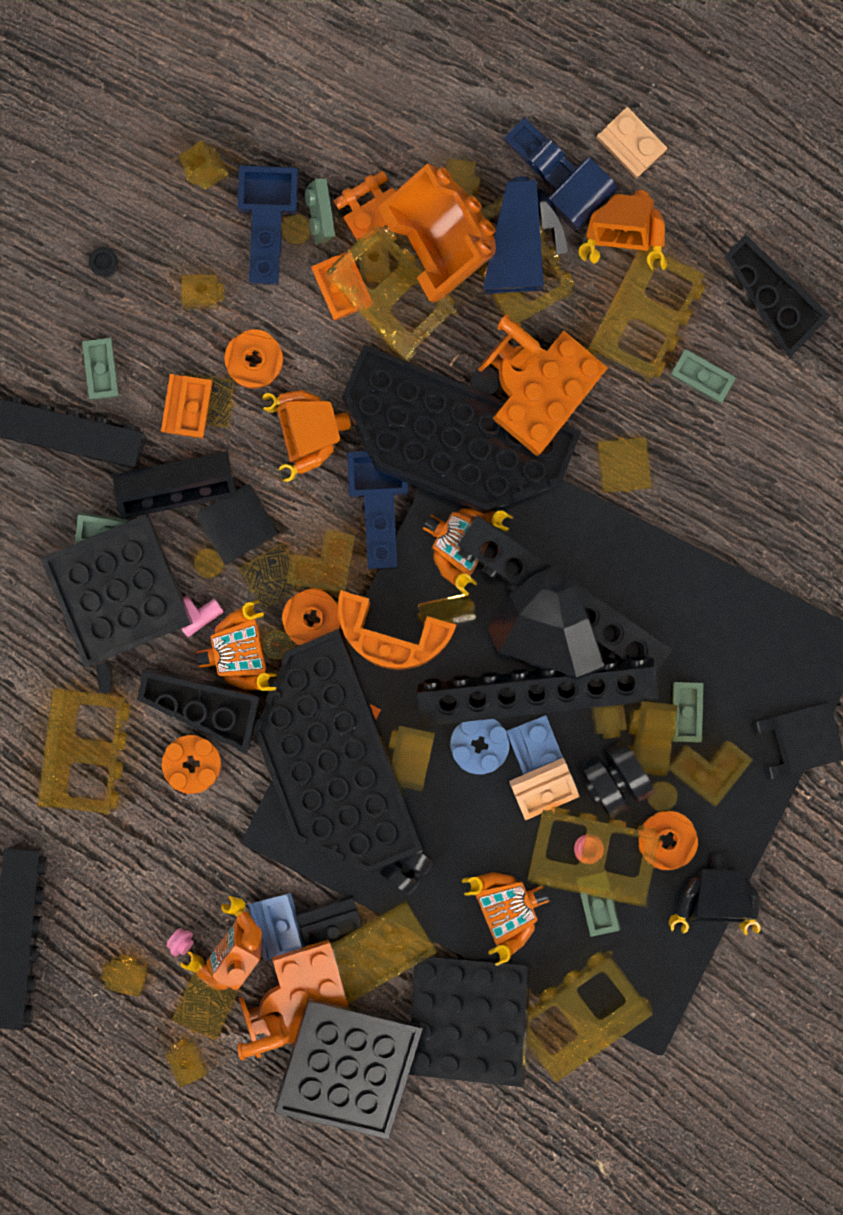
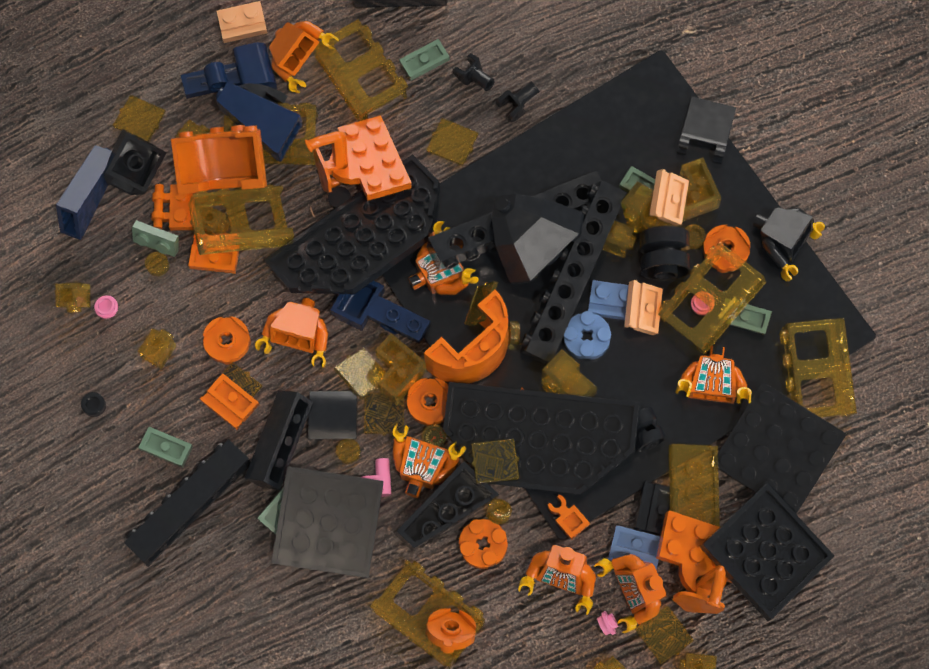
camera: 55 degrees left, 15 degrees down
(62, 791) = (446, 639): none -> orange plate
(105, 678) = (385, 567): black tile -> none
(206, 865) = (564, 570): none -> orange torso
(216, 206) = (106, 307): none -> bright pink plate
(233, 762) = (499, 511): none -> clear yellow tile
(264, 843) = (570, 520): none -> orange plate
(267, 196) = (123, 266): dark blue plate -> none
(278, 729) = (495, 461): none -> clear yellow piece
(300, 527) = (360, 372): none -> clear yellow piece
(330, 101) = (83, 194): none -> slope
(392, 132) = (133, 163): none -> black slope
(436, 665) = (514, 332): none -> clear yellow tile
(451, 102) = (139, 118): none -> clear yellow piece
(677, 751) = (669, 197): none -> light nougat plate
(716, 511) = (519, 98): none -> black piece
(717, 444) = (474, 73): none -> black piece

